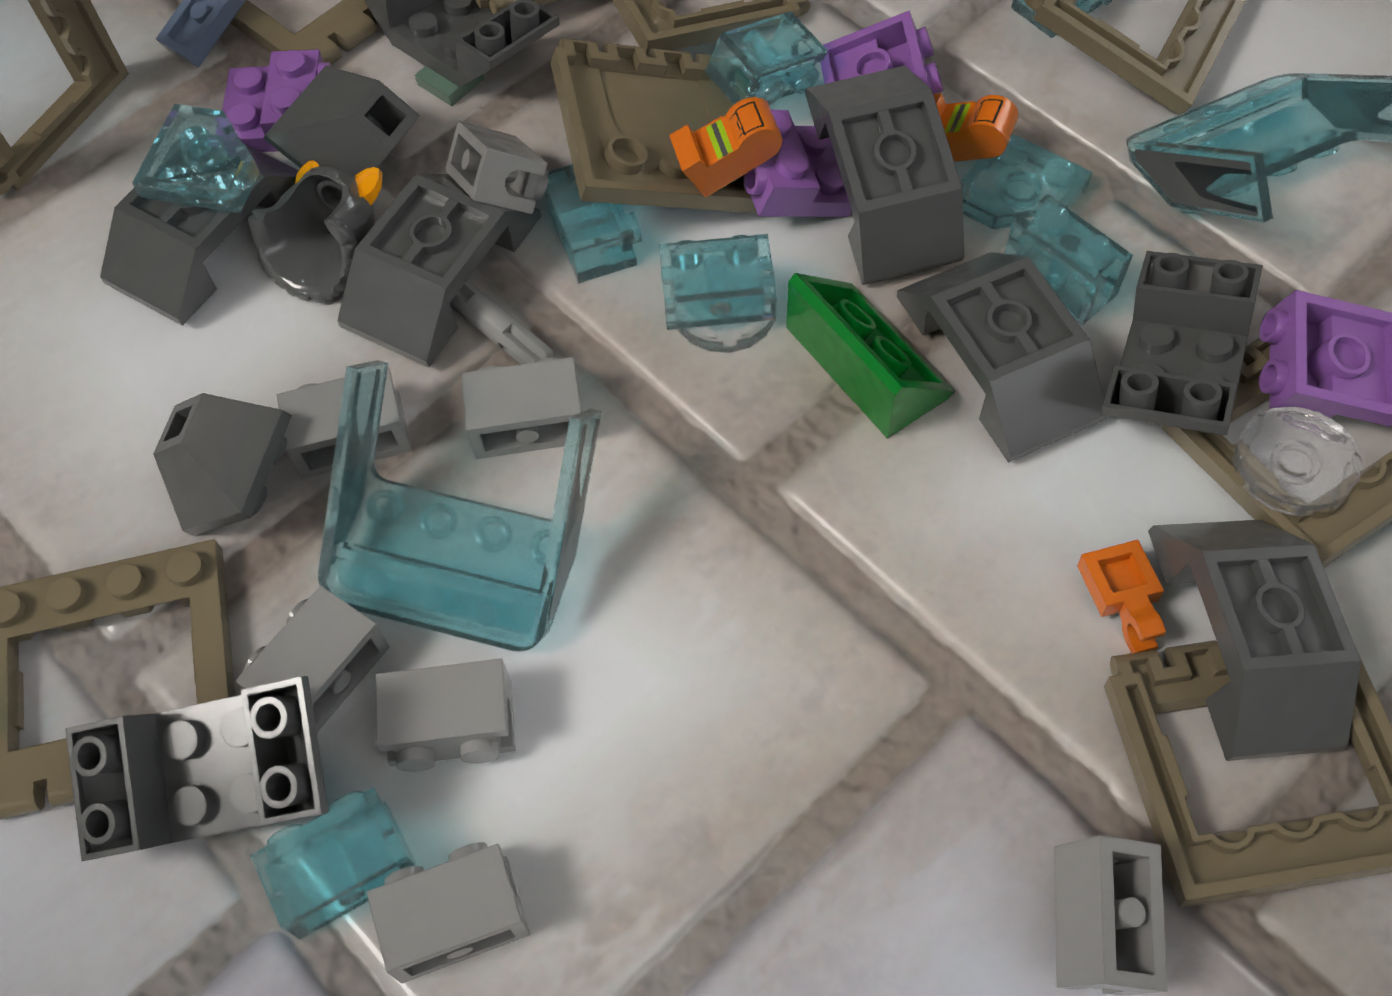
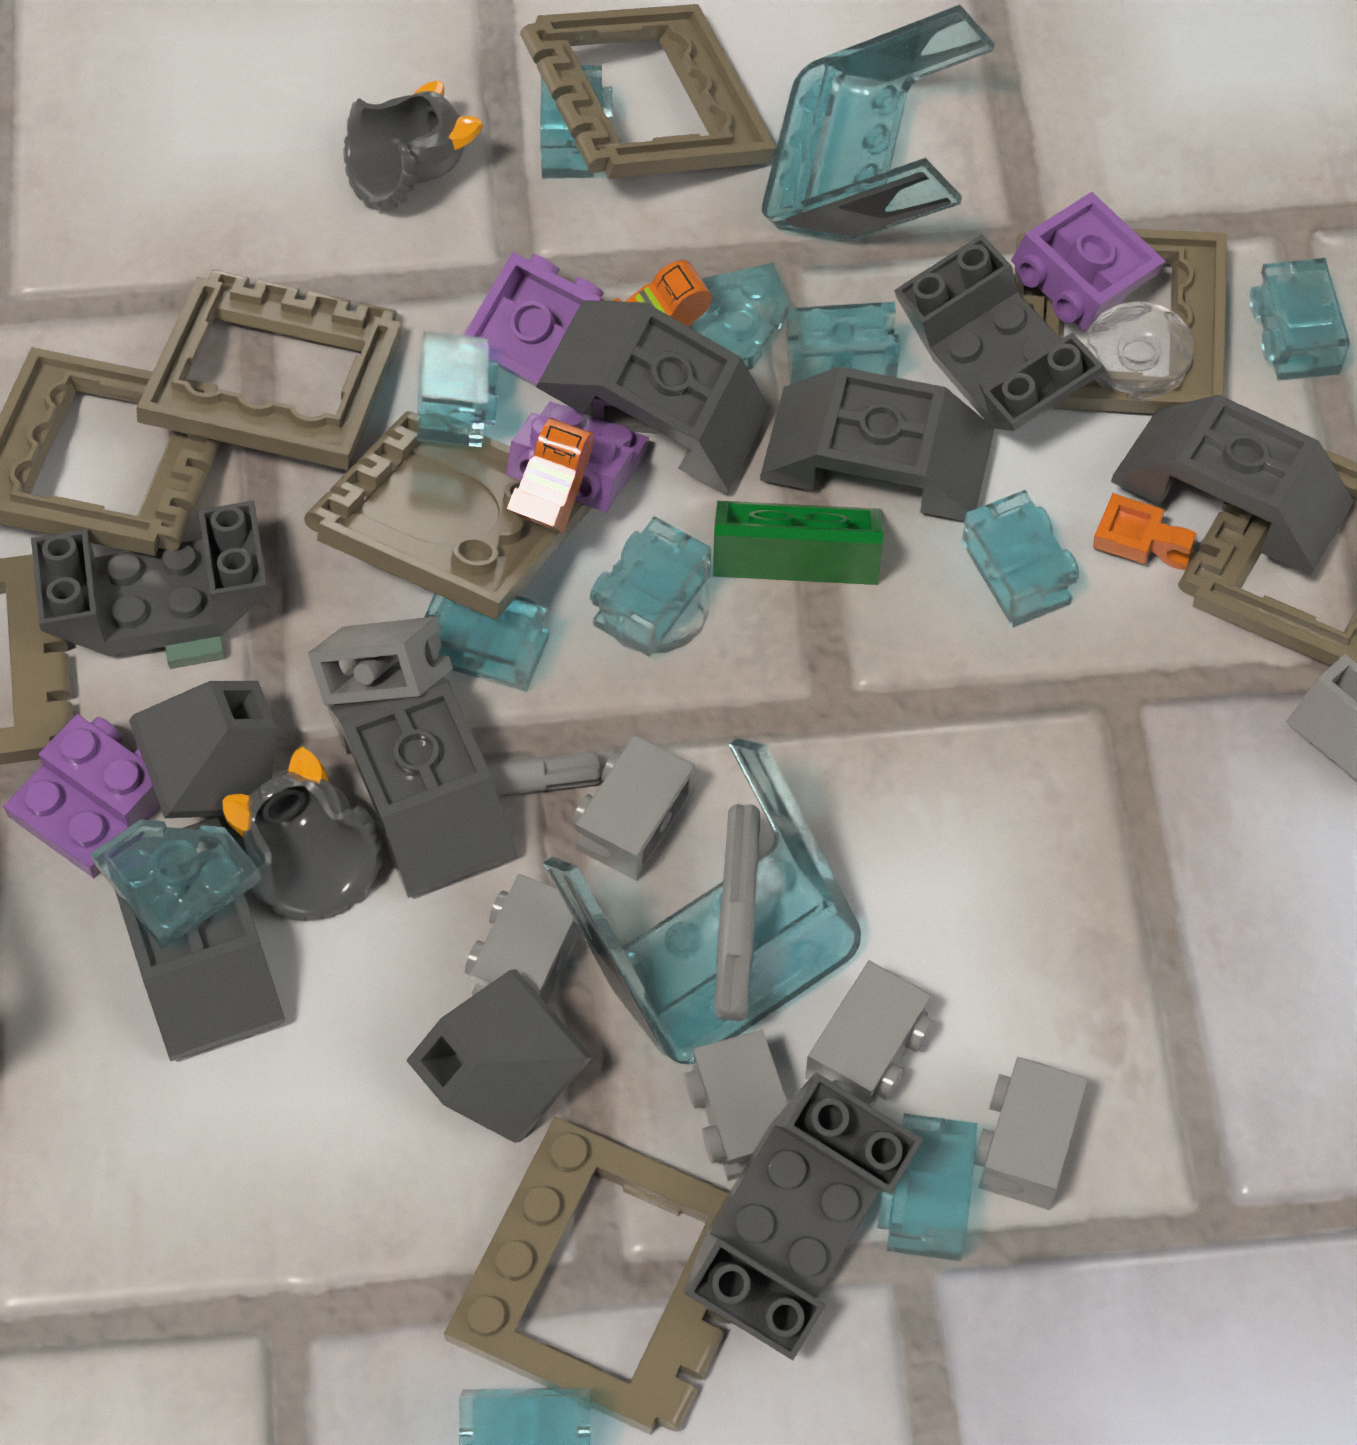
camera: 55 degrees left, 0 degrees up
(458, 534) = (737, 913): none -> light grey axle
(1002, 515) = (1020, 557): none -> clear light blue brick

